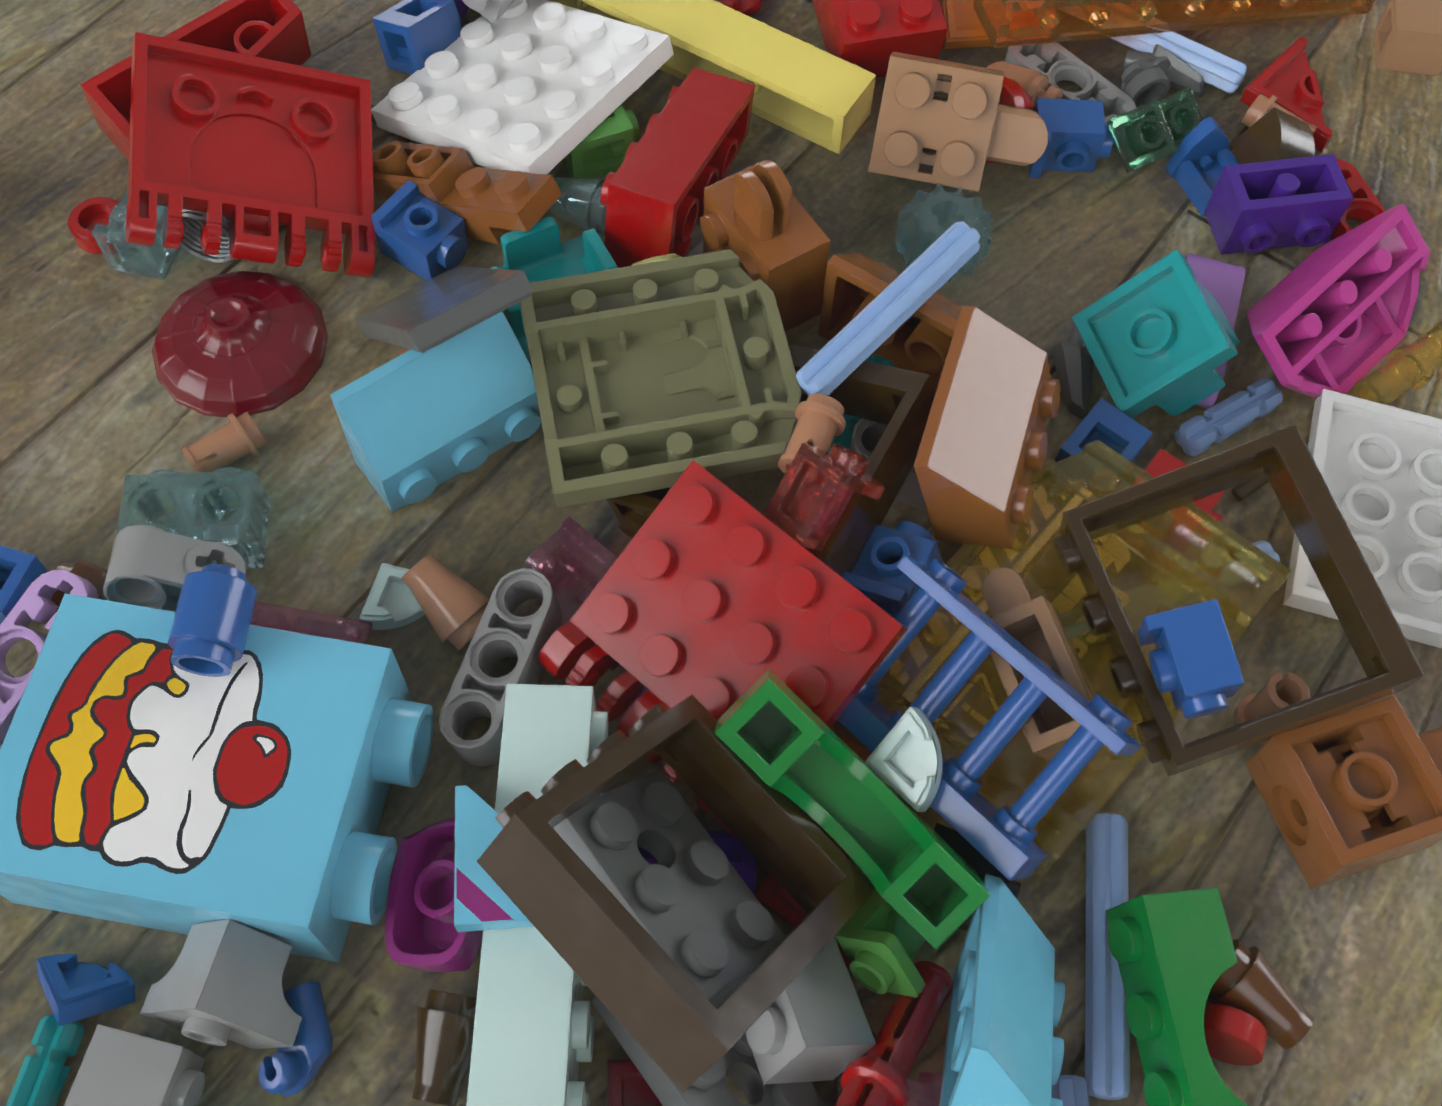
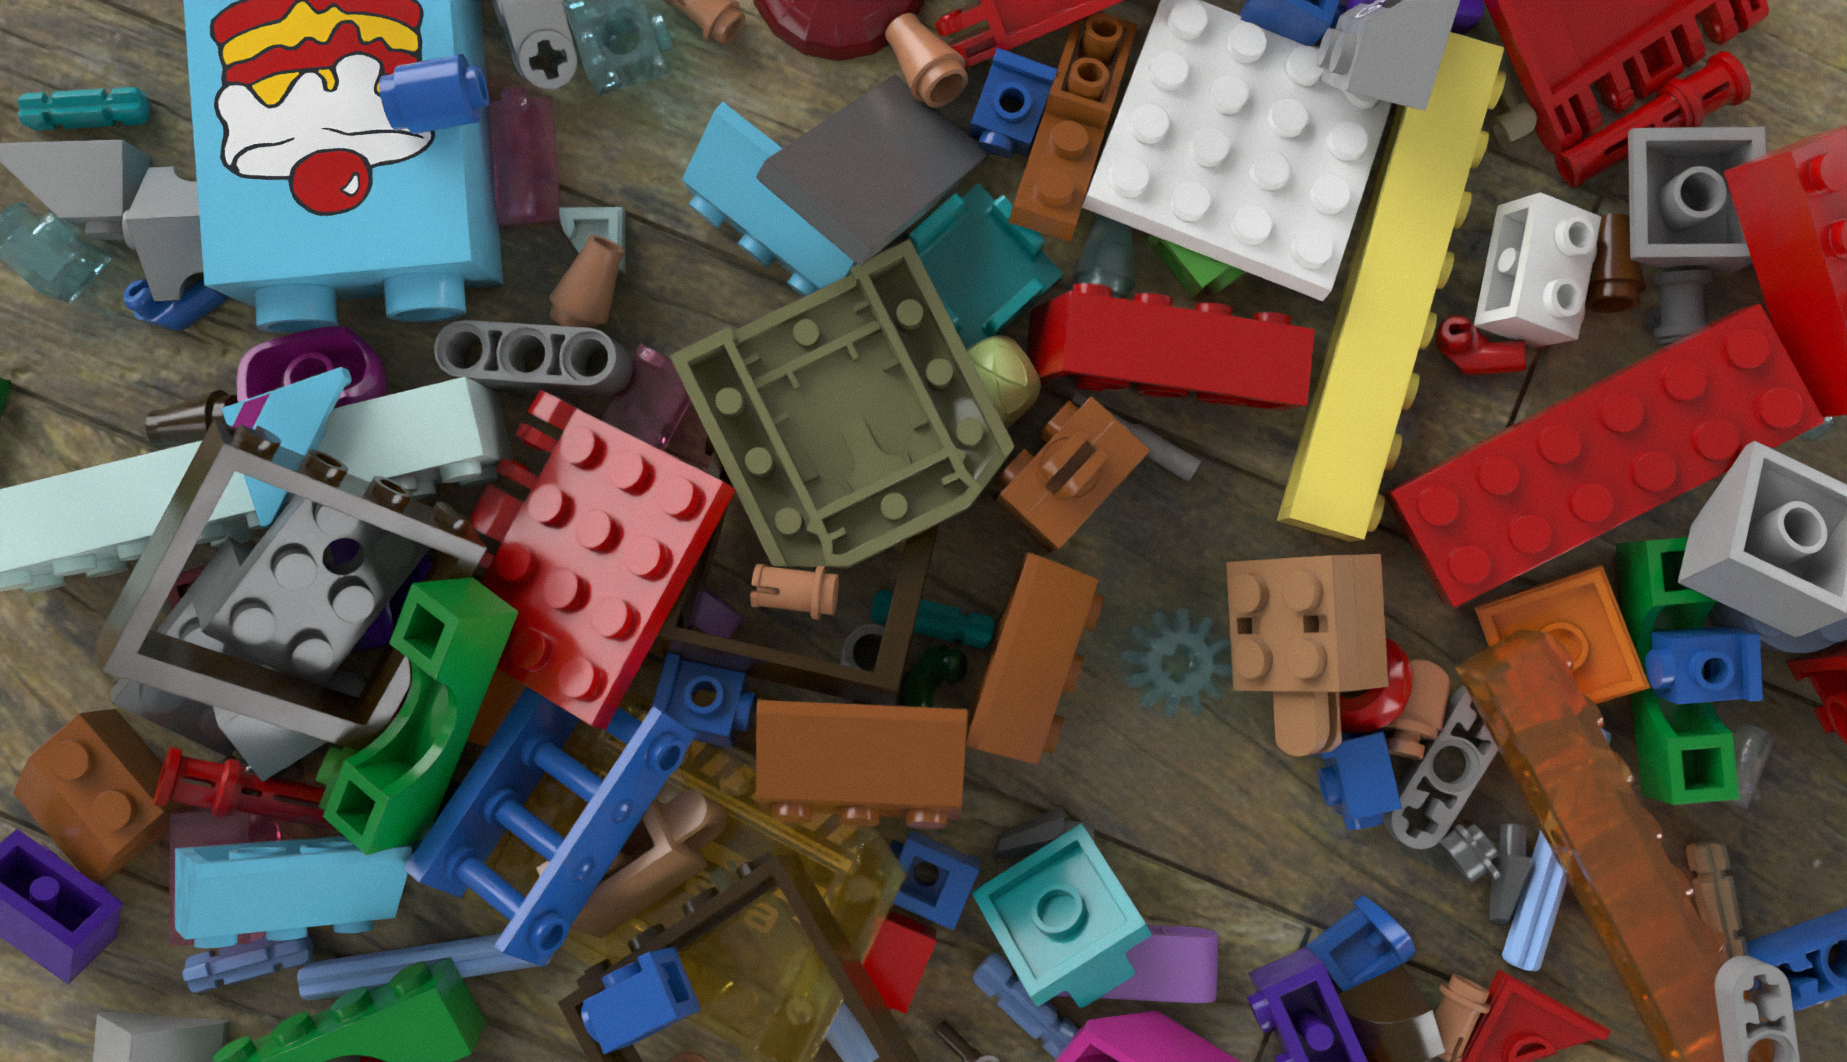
camera: 80 degrees right, 25 degrees up
(82, 988) = (167, 108): blue tile -> none
(356, 283) = (928, 63): none -> nougat cone
(818, 492) = (721, 616): clear red bracket -> none
(888, 310) = (973, 633): light blue axle -> none
(910, 759) = (487, 759): light aqua tile -> none
(1154, 129) = (1396, 875): clear green slope -> none

